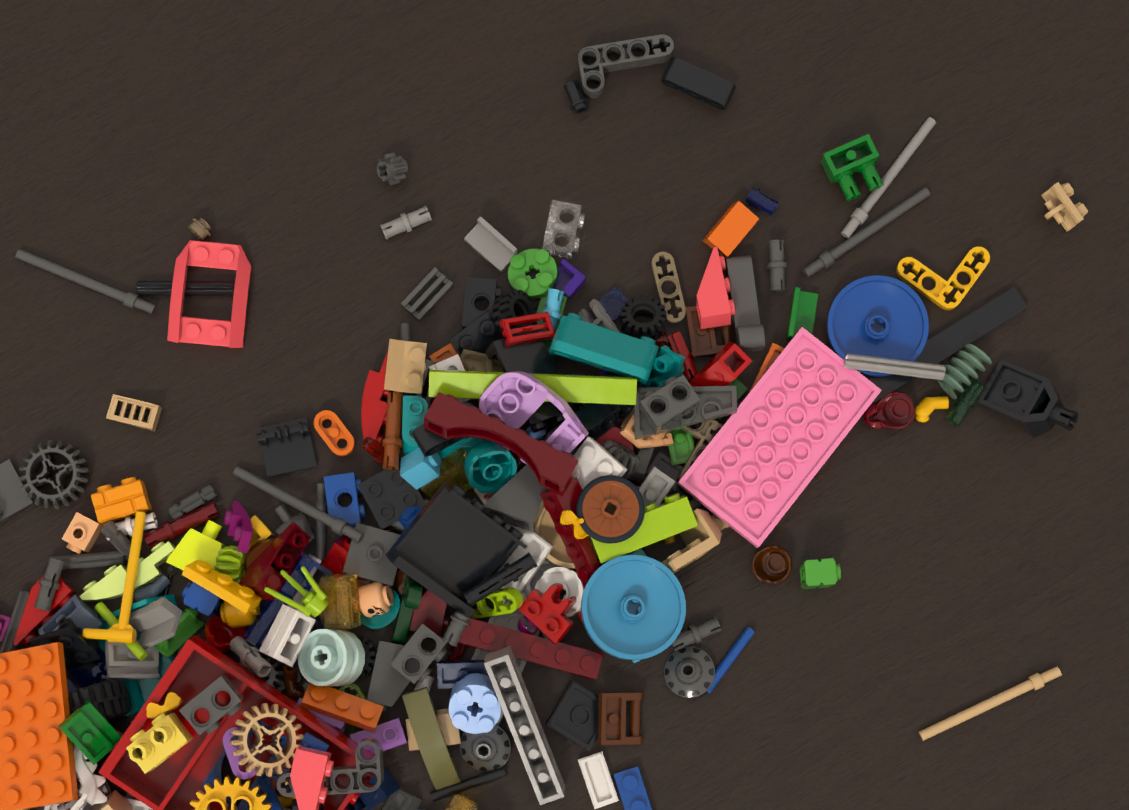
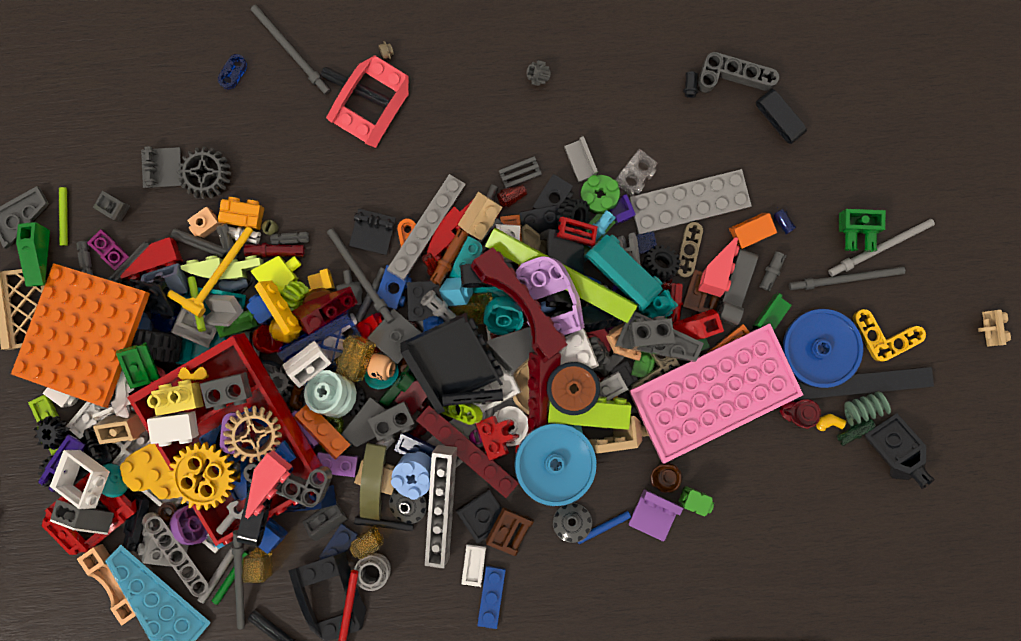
camera: 25 degrees right, 5 degrees up
(35, 340) = (228, 70): none -> clear blue beam
(49, 584) = (162, 247): dark grey pin -> none
(153, 418) = (291, 166): tan slope -> none
(167, 501) = (273, 227): none -> olive hinge
(170, 778) = (173, 427): none -> white brick
(239, 526) = (312, 271): magenta slope -> none
(250, 656) = (274, 366): light grey pin -> none
(312, 601) = (335, 350): lime plant -> none
(348, 410) = (426, 227): none -> light grey plate
(406, 222) = (529, 115): light grey pin -> none
(406, 493) = (438, 307): none -> light grey pin
(429, 326) = (509, 196): none -> clear red cone
(456, 628) = (425, 417): dark grey pin -> none
(569, 517) = (541, 380): yellow piece -> none
(642, 232) = (690, 202): none -> light grey plate
(696, 633) = (591, 498): dark grey pin -> none
(780, 615) = (654, 515): none -> medium lavender bracket
(894, 366) = (821, 383): light grey axle -> none

